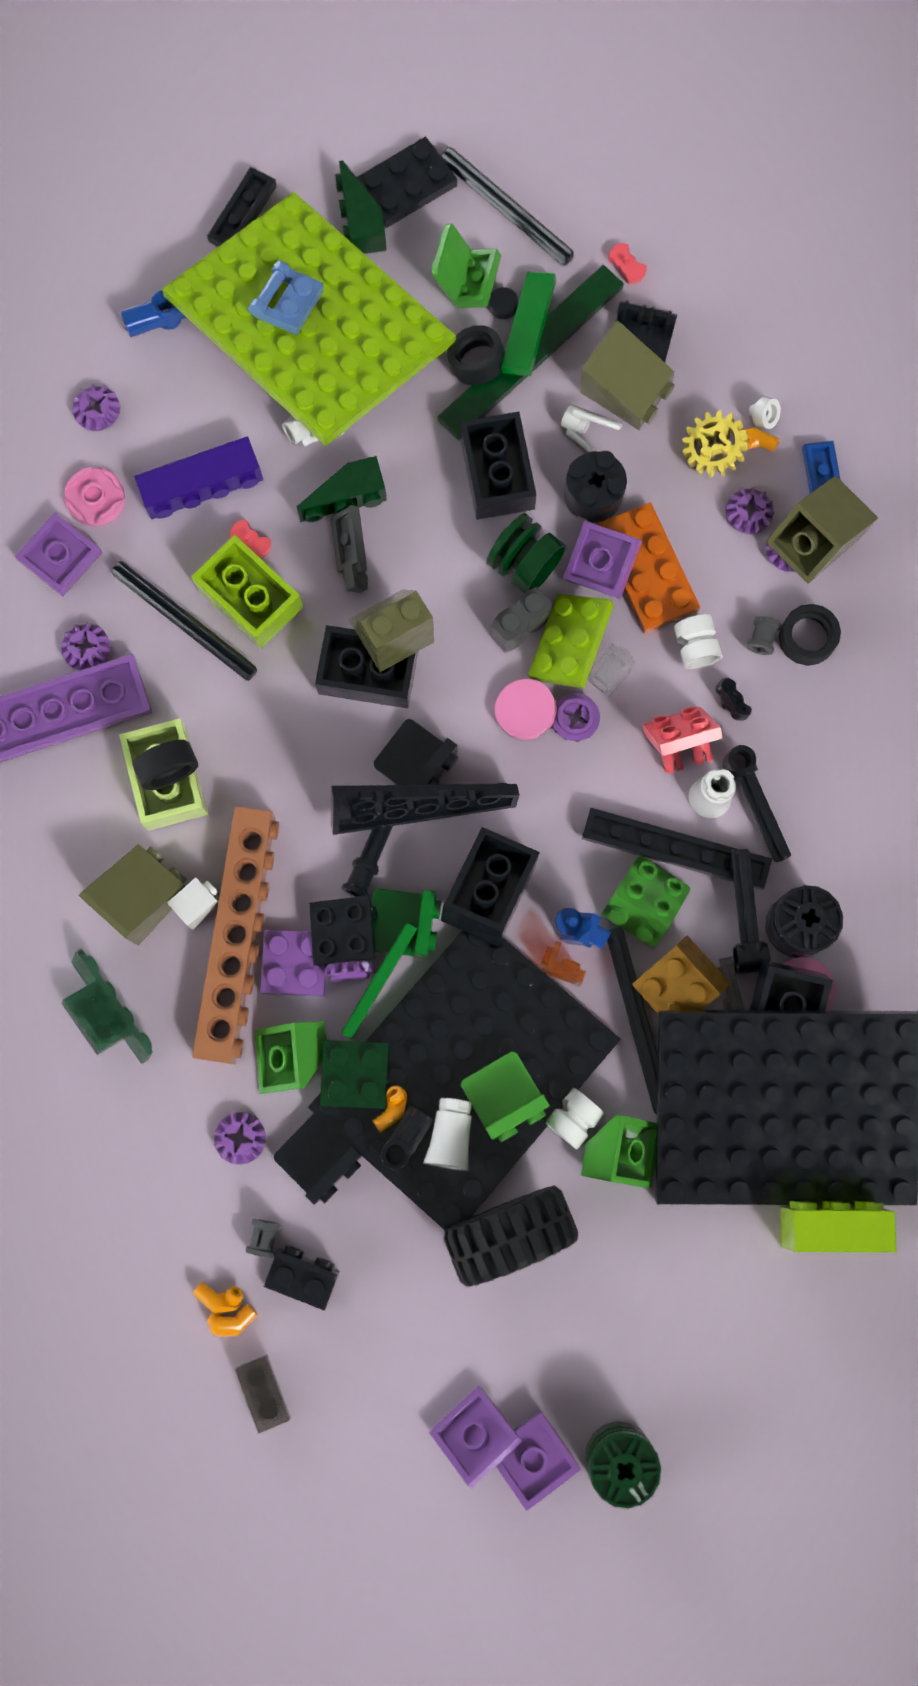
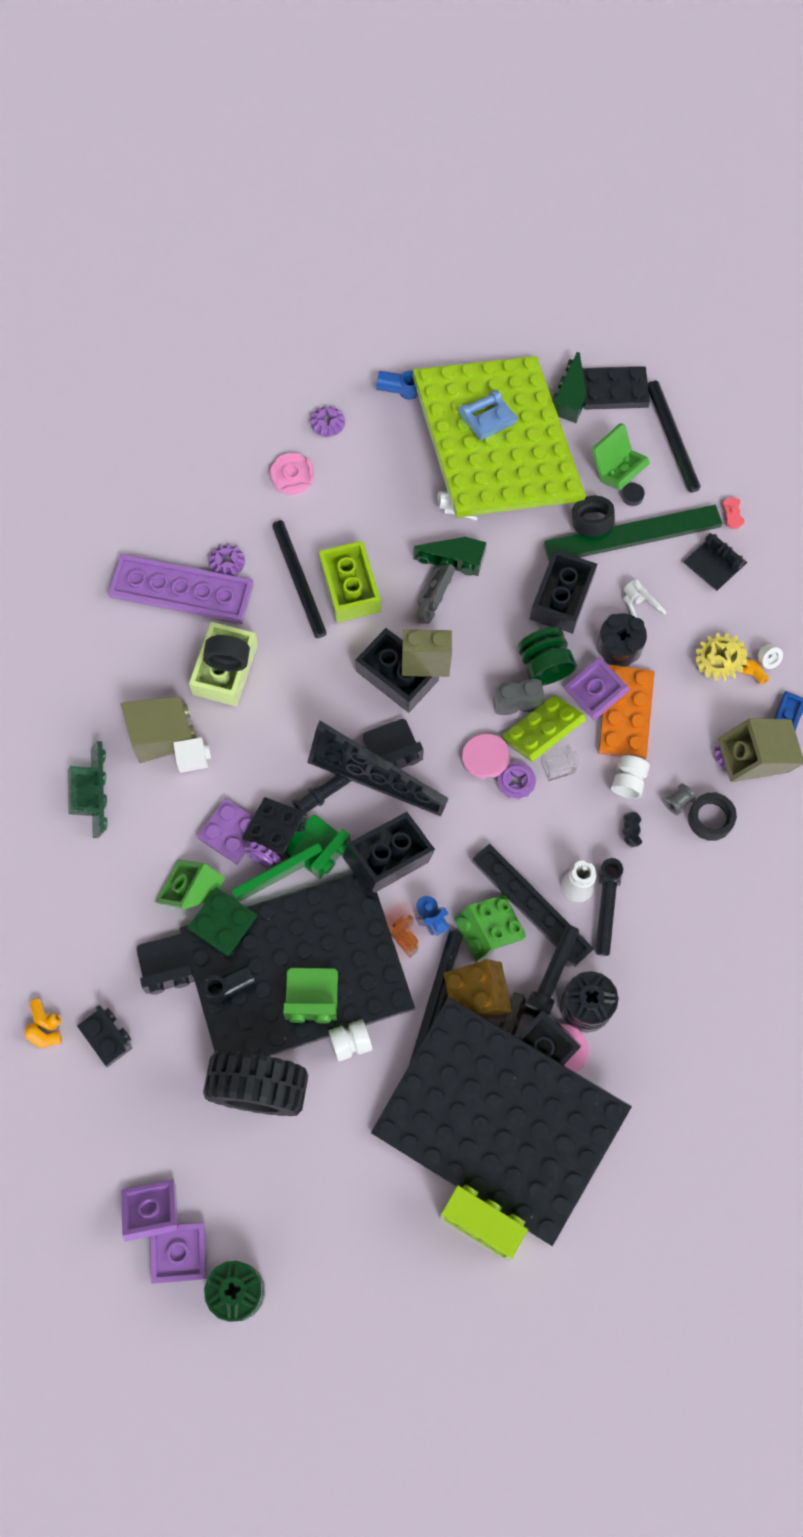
camera: 30 degrees right, 10 degrees down
(58, 554) = (246, 495): medium lavender plate -> none
(199, 478) = (364, 496): dark purple brick -> none
(243, 206) = (499, 348): black plate -> none
(245, 824) = (254, 725): nougat brick -> none
(252, 1129) = (123, 933): medium lavender gear -> none
(259, 545) = (373, 551): coral piece -> none
(262, 1393) = (31, 1095): clear smoke plate -> none
(263, 1238) = (97, 993): dark grey bush -> none
(395, 1108) = (236, 959): light orange arm -> none
(450, 1135) = (259, 998): white plant -> none
(528, 324) = (641, 515): green tile -> none
(622, 1152) = (368, 1082): bright green slope -> none
(626, 377) = (685, 581): olive slope -> none
(681, 731) = (591, 830): coral plate -> none
(738, 516) = (722, 723): medium lavender gear -> none

